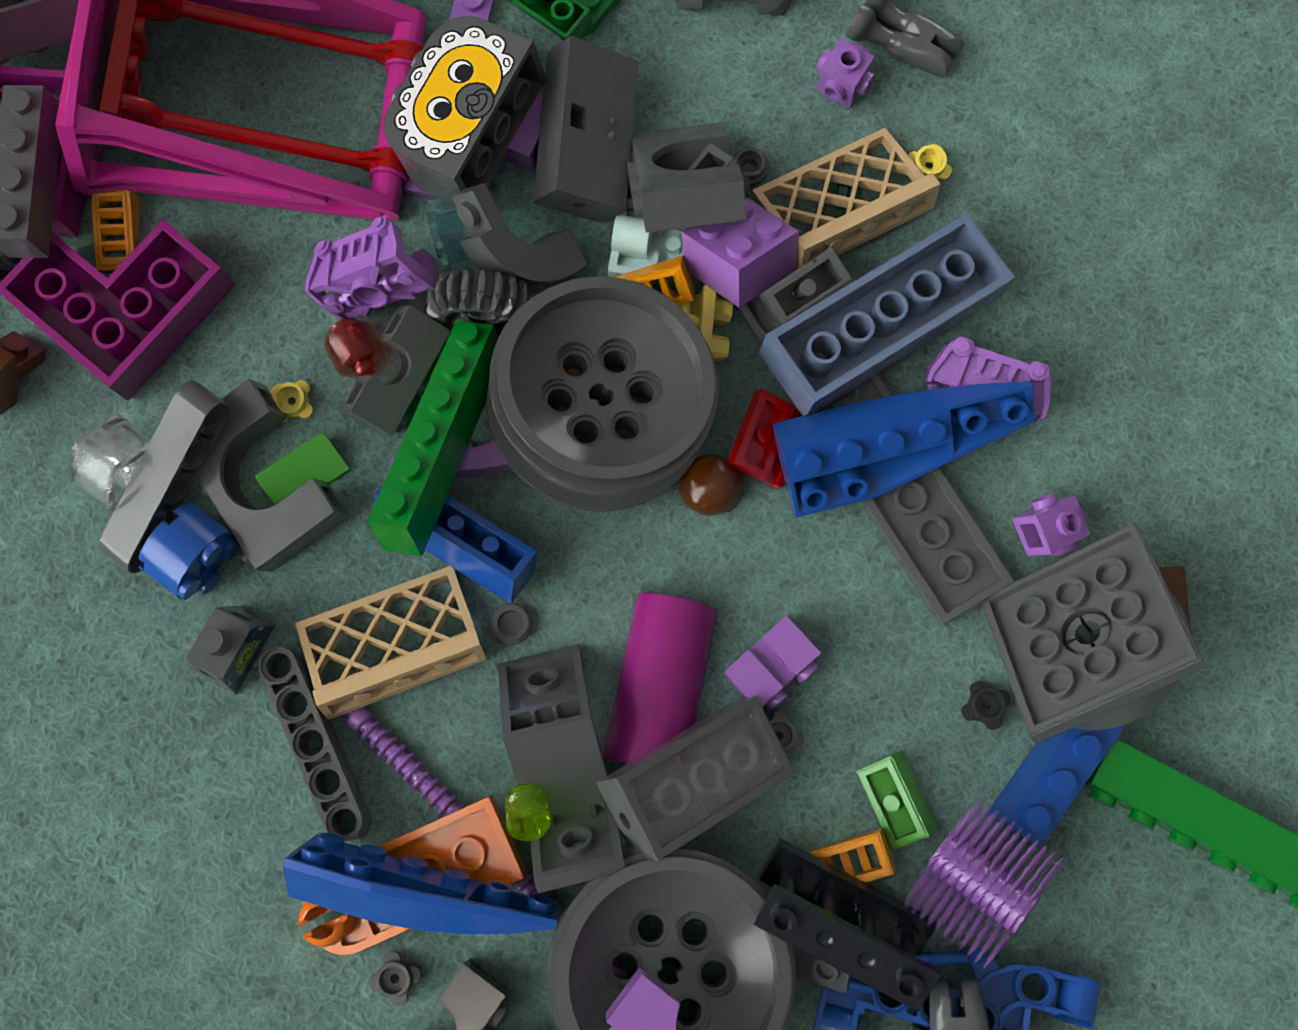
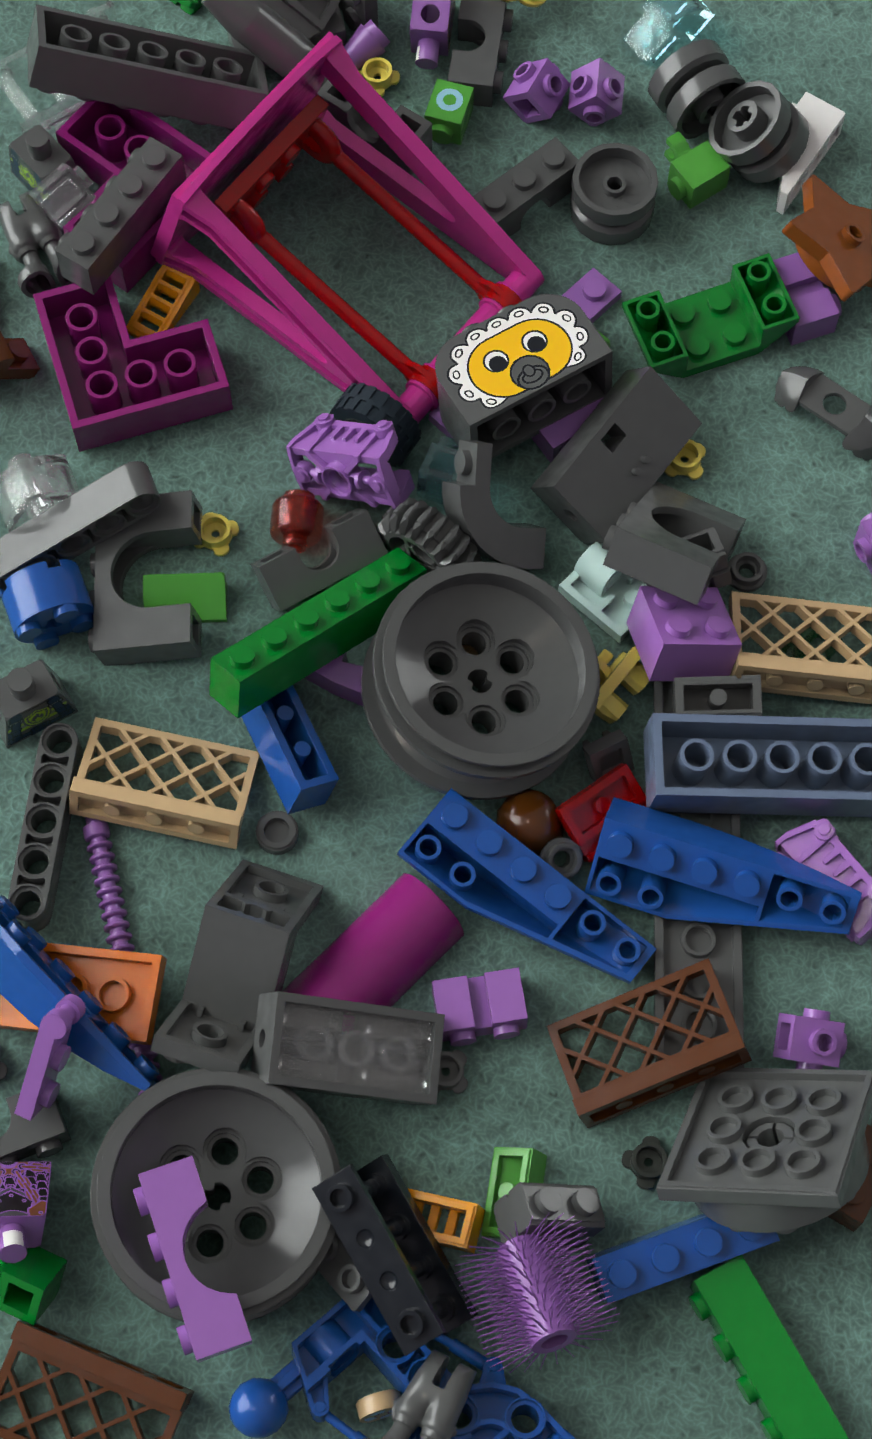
camera: 25 degrees right, 10 degrees down
(356, 212) = (369, 405): none -> black wheel
(455, 954) = (49, 1057): none -> medium lavender plate
(527, 812) = (188, 974): clear neon green wheel -> none
(650, 105) = (692, 468): none -> light yellow plate
(673, 267) = (618, 623): light orange slope -> none
(738, 389) = (607, 753): none -> dark grey tile
(742, 550) = (516, 888): none -> blue wedge
(767, 498) = (573, 856): none -> dark grey plate
(942, 806) = (544, 1198): none -> dark grey brick
(956, 632) = (654, 1079): none -> reddish brown fence

